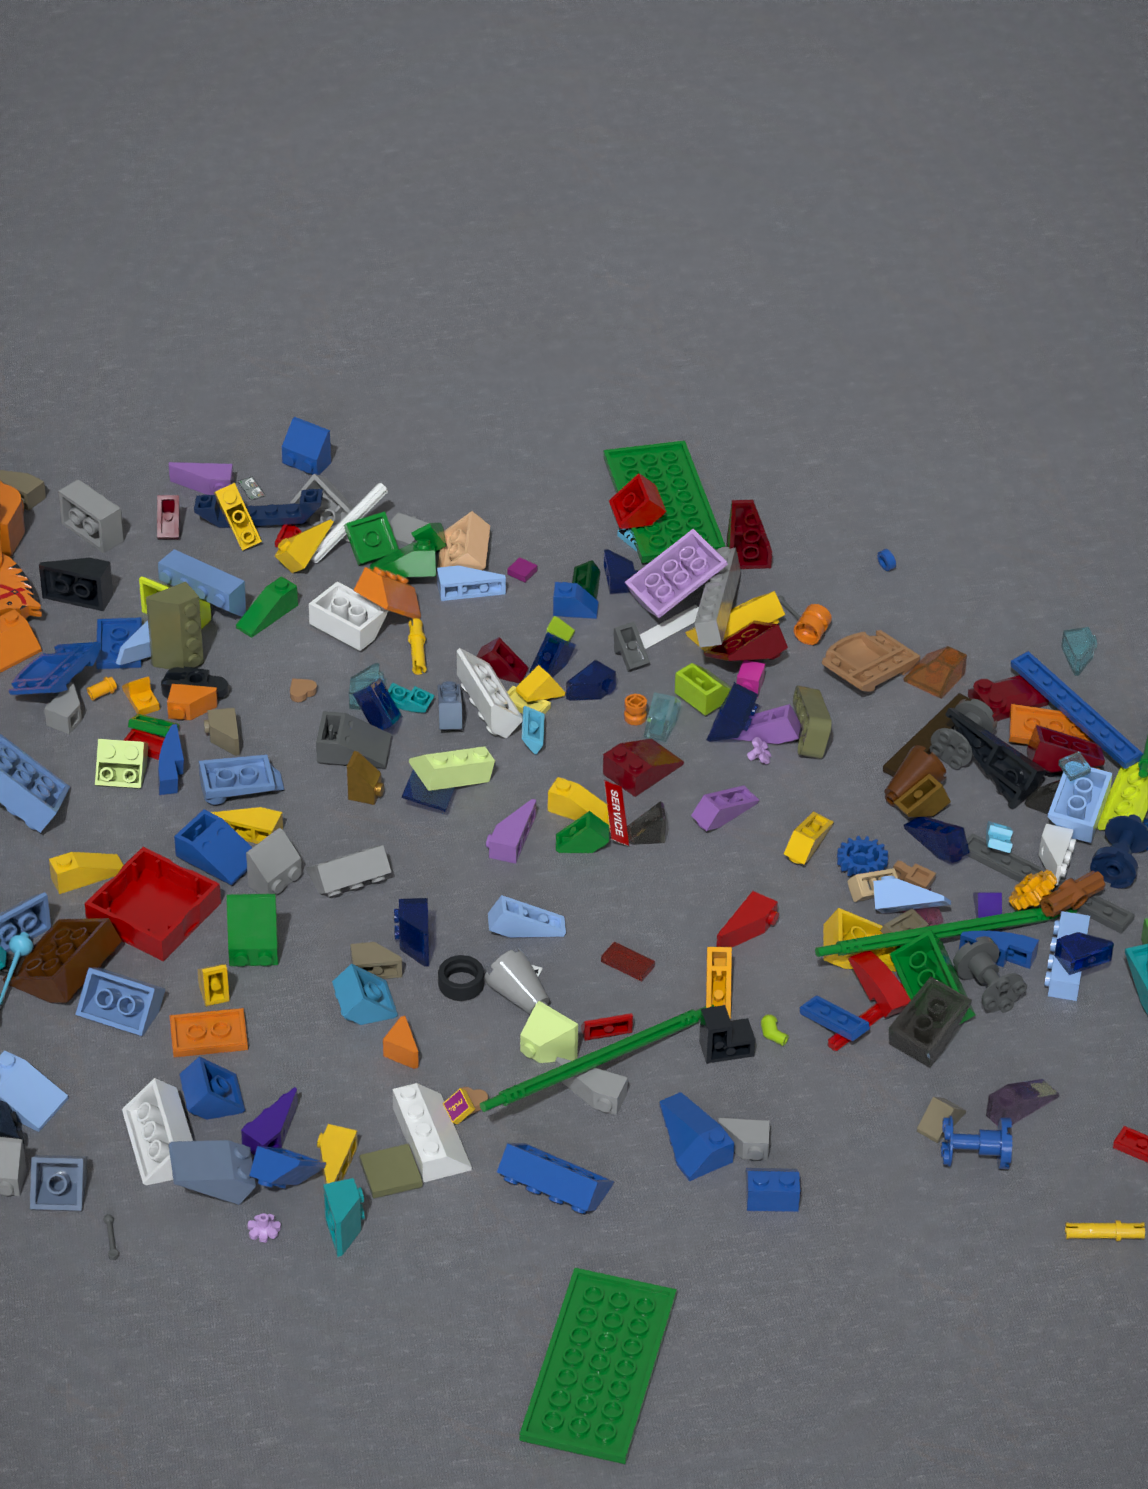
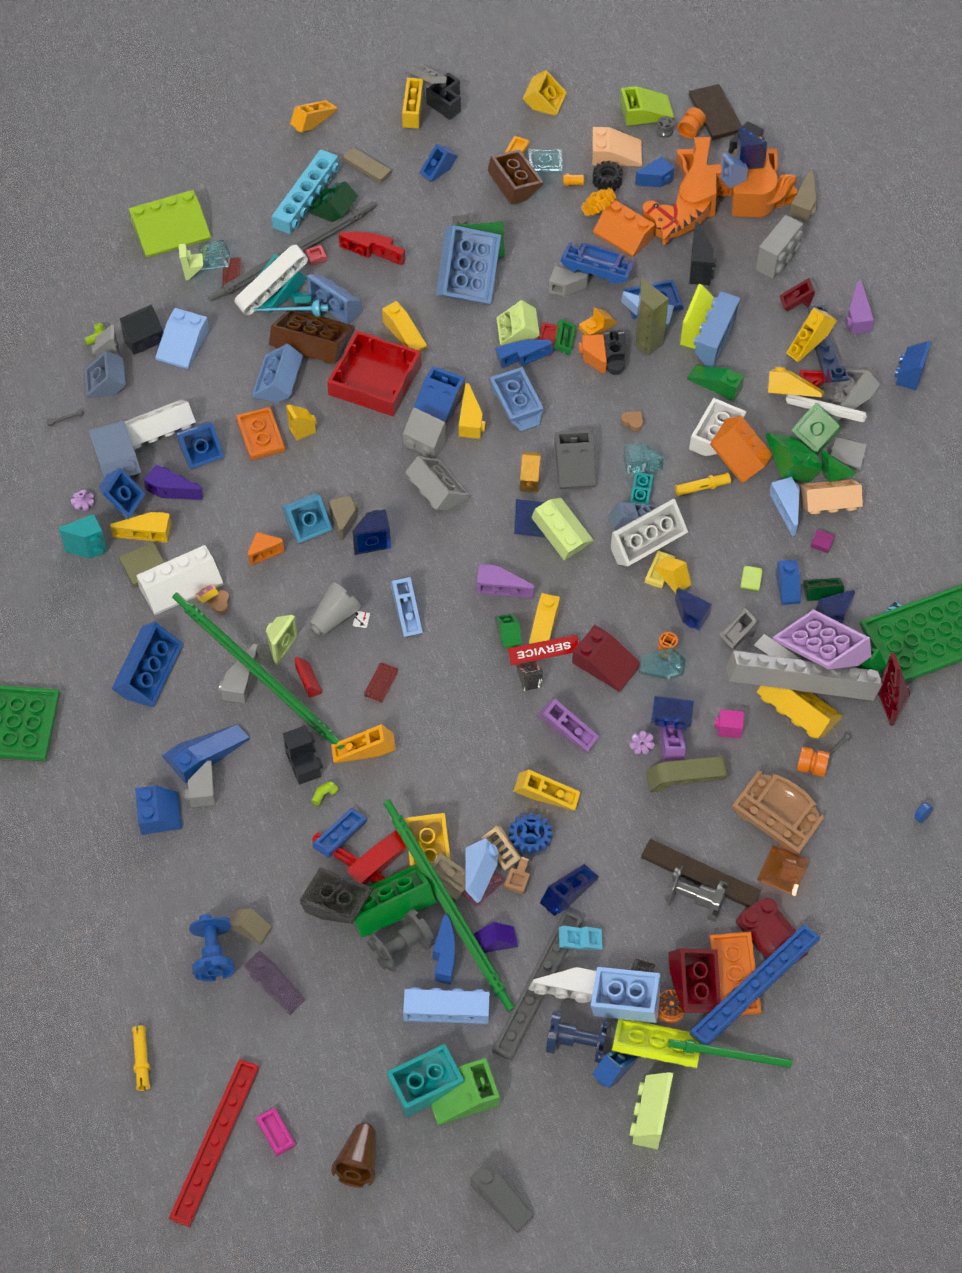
camera: 80 degrees right, 15 degrees up
(102, 688) = (600, 300): light orange pin -> none
(223, 729) = (569, 379): dark tan slope -> none
(251, 488) = (864, 344): light grey sticker -> none
(252, 929) = (344, 433): green slope -> none
(378, 705) = (615, 467): clear blue slope -> none
(461, 991) = (339, 562): black tyre -> none
(503, 661) = (697, 543): dark red slope -> none
(533, 729) = (621, 574): medium azure slope -> none
(553, 654) = (716, 576): clear blue slope -> none
(637, 504) = (920, 605): red slope -> none
(700, 688) = (707, 689): lime slope -> none
(749, 920) = (438, 758): red slope -> none
(751, 642) = (760, 712): dark red slope -> none
(912, 770) = (633, 861): reddish brown cone -> none
(924, 798) = (607, 871): pearl gold slope -> none
(1011, 770) = (663, 932): black wedge -> none
(1032, 889) = (511, 967): light orange gear -> none
(1072, 893) = (513, 1000): dark orange piece -> none
(1074, 766) = (651, 978): clear light blue tile -> none
(1078, 648) = (849, 986): clear light blue slope -> none
(1082, 951) = (431, 1006): clear blue slope -> none

